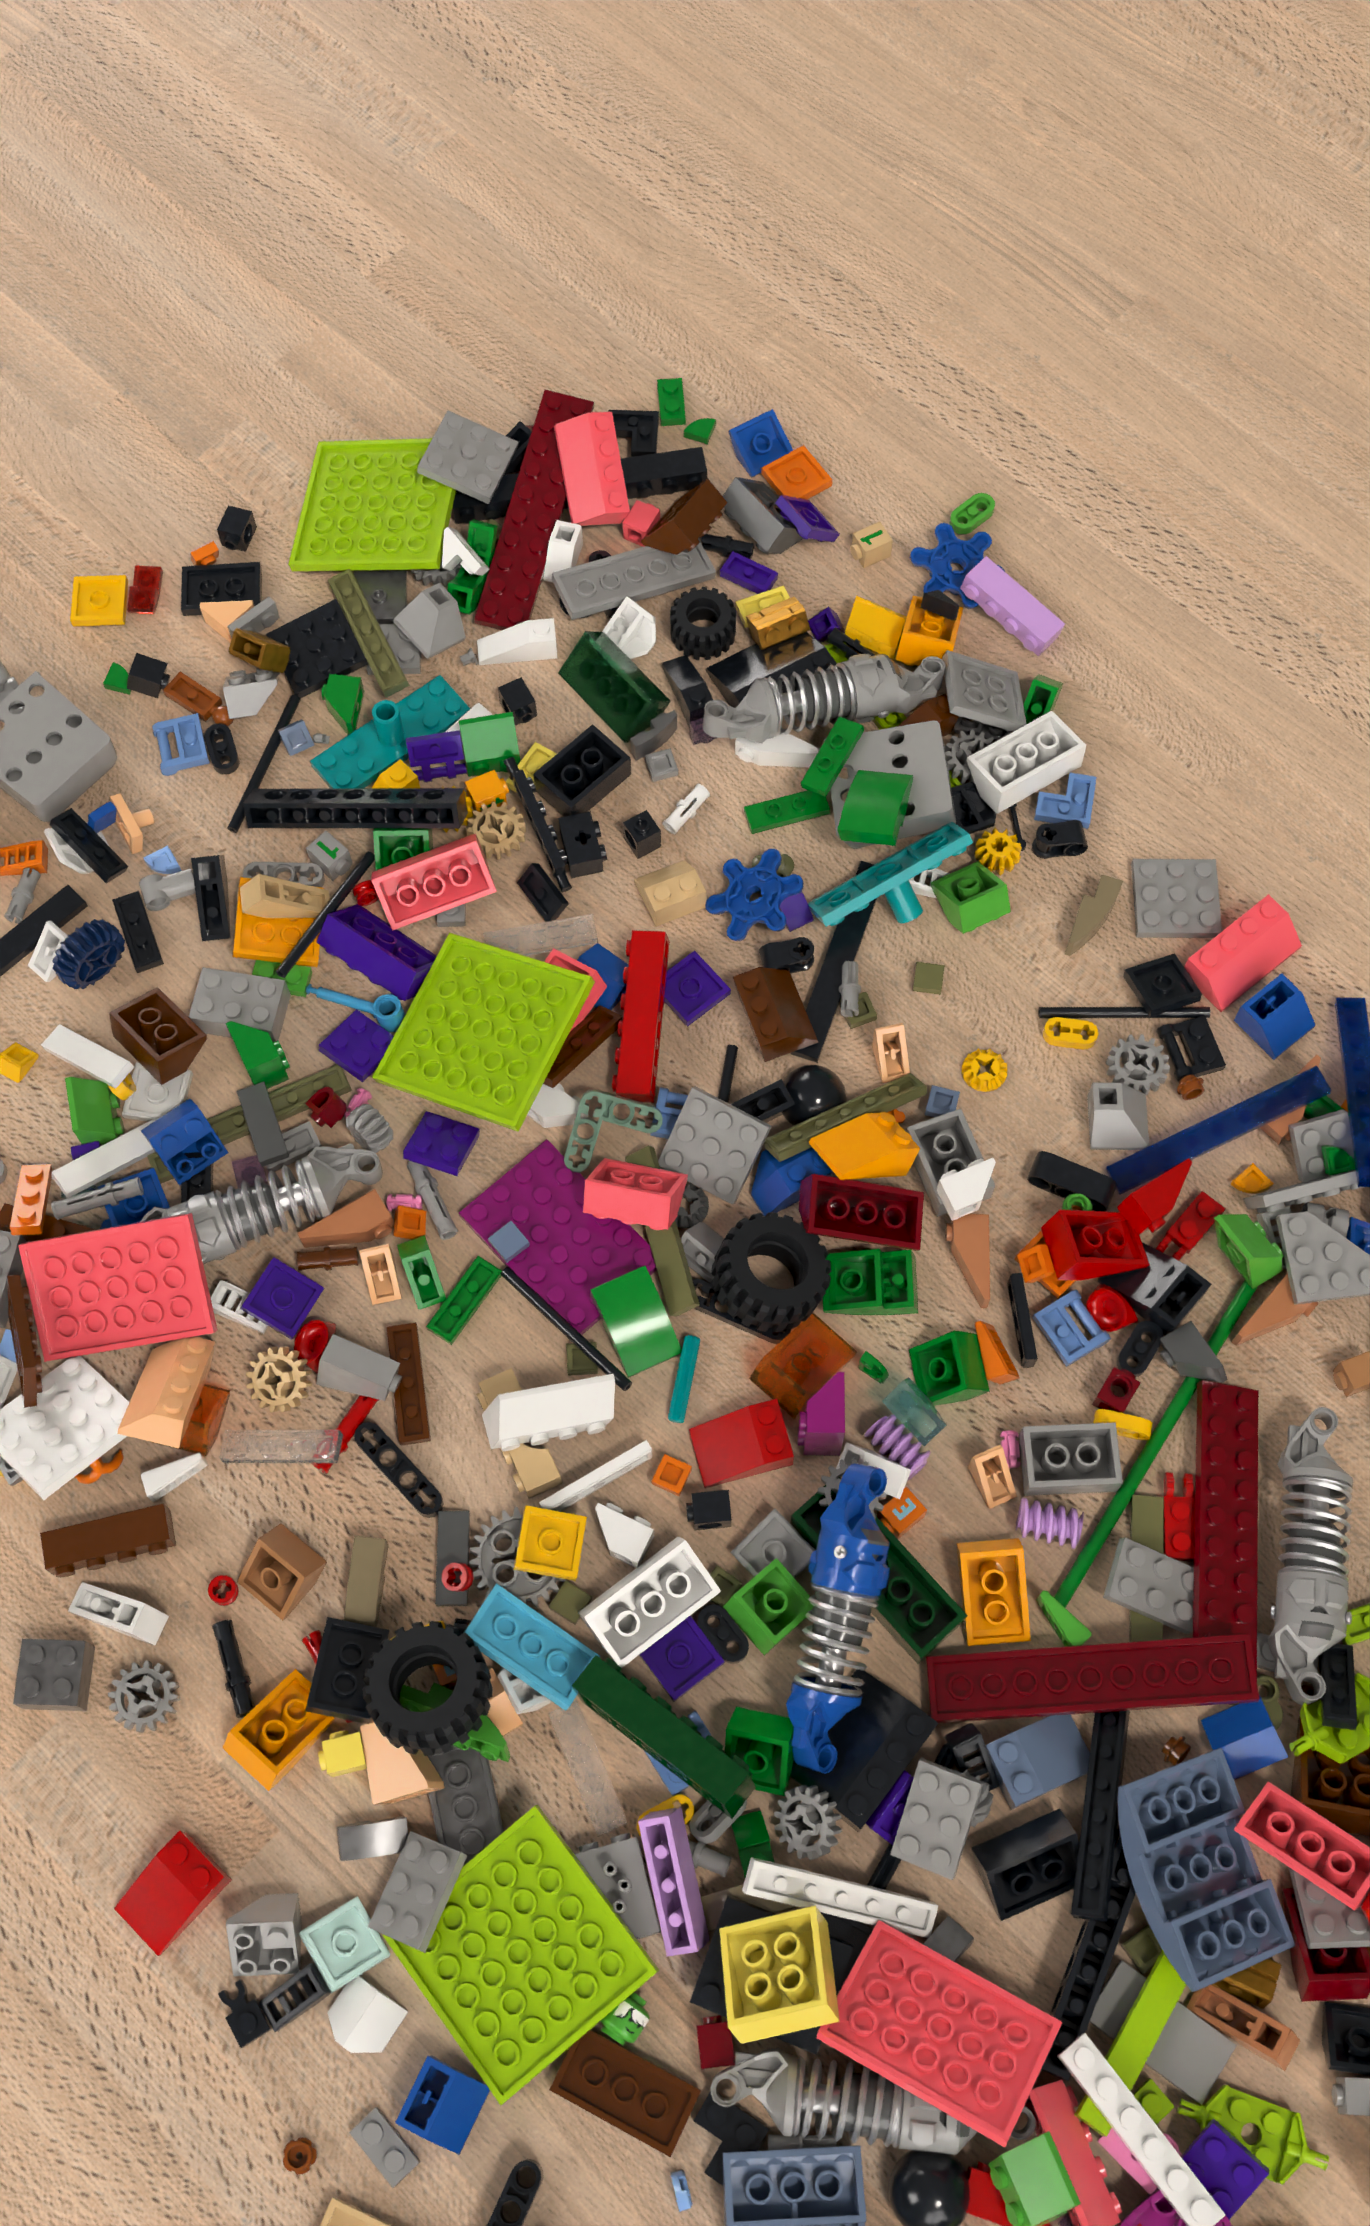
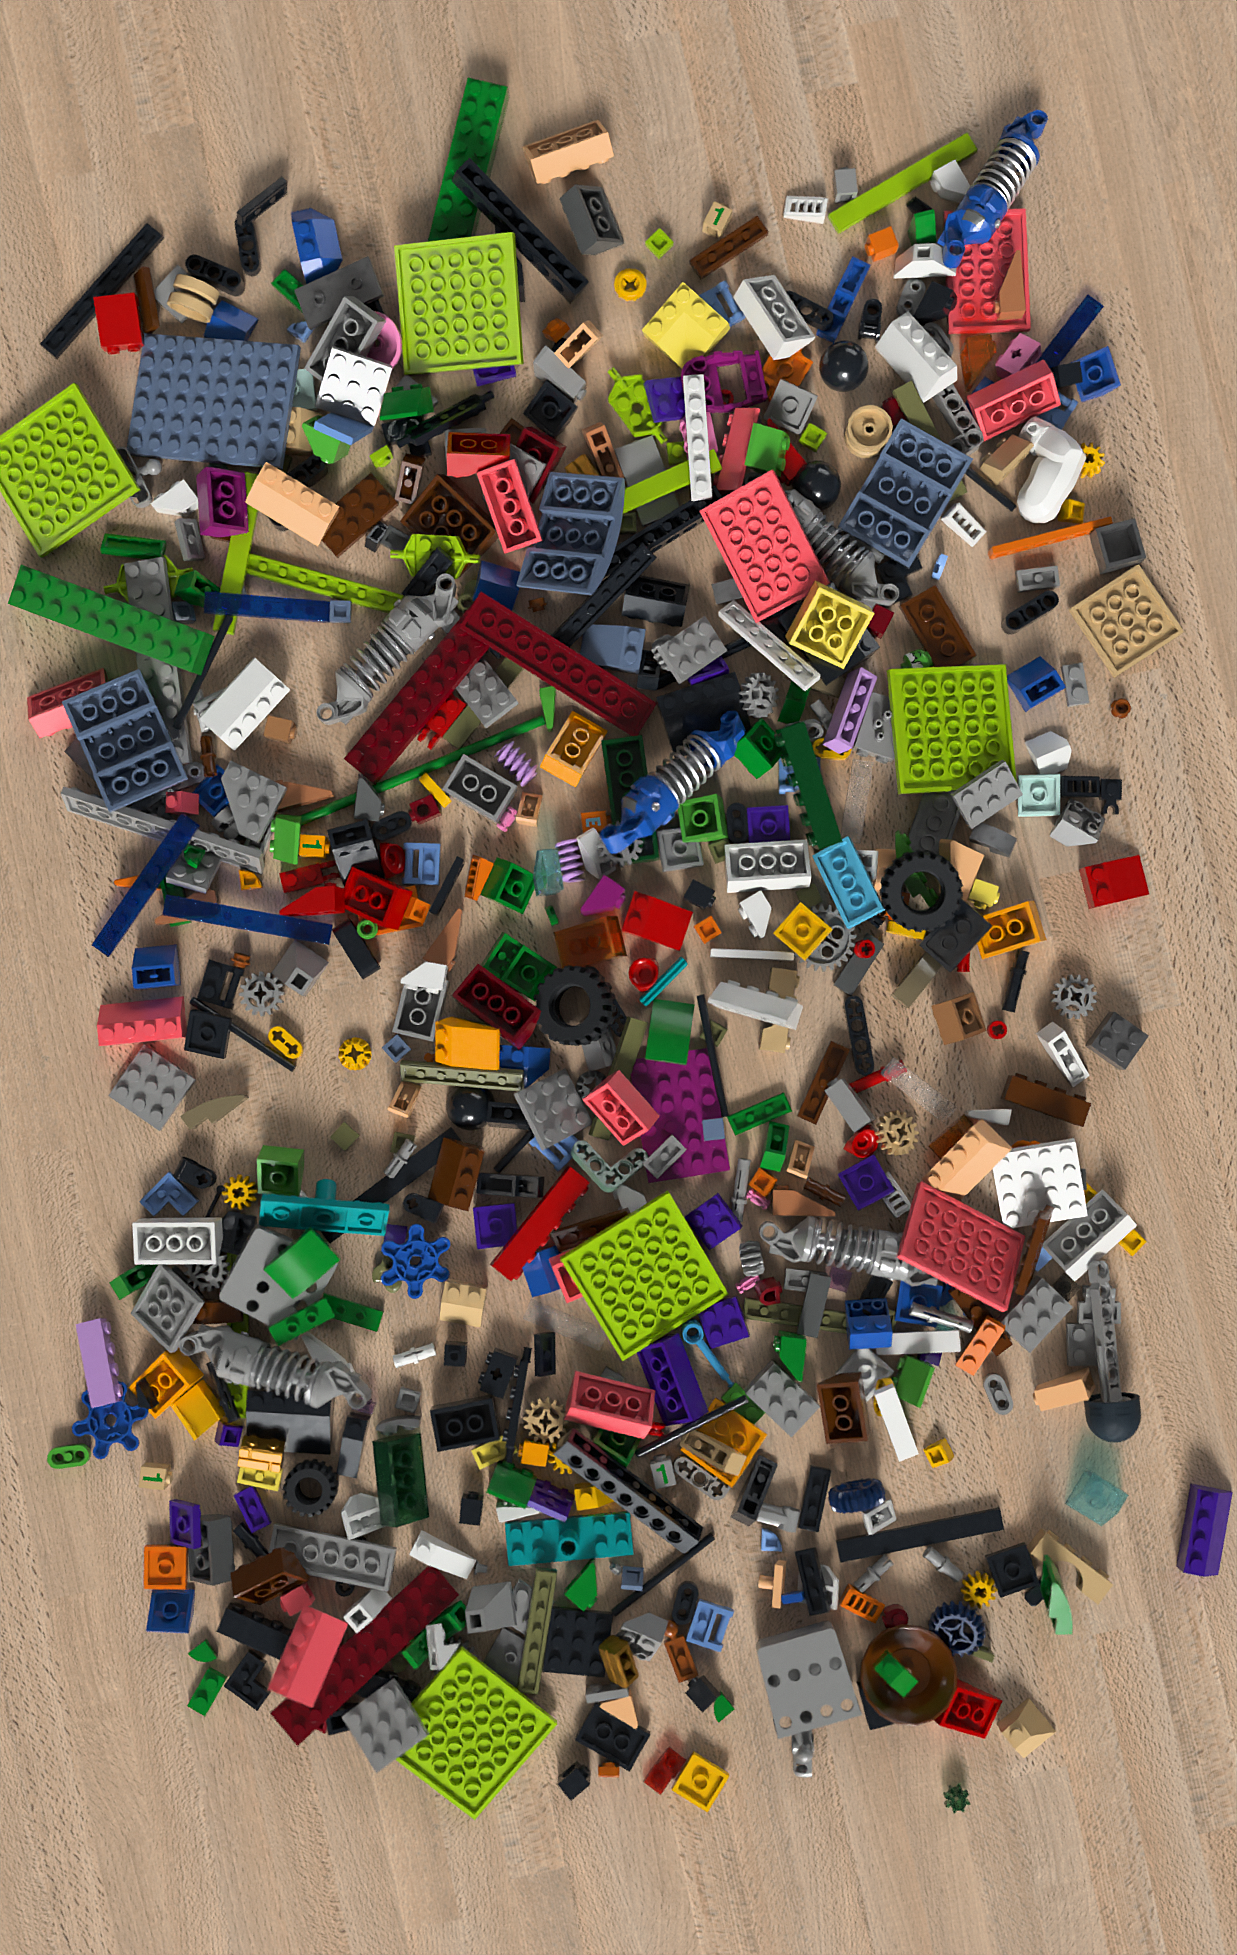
camera: 150 degrees left, 20 degrees up
(547, 1174) = (664, 1156): none -> light grey plate
(704, 1040) = (510, 1185): none -> black slope
(714, 1371) = (644, 973): none -> red piece
(1212, 1261) = (314, 846): none -> light orange brick

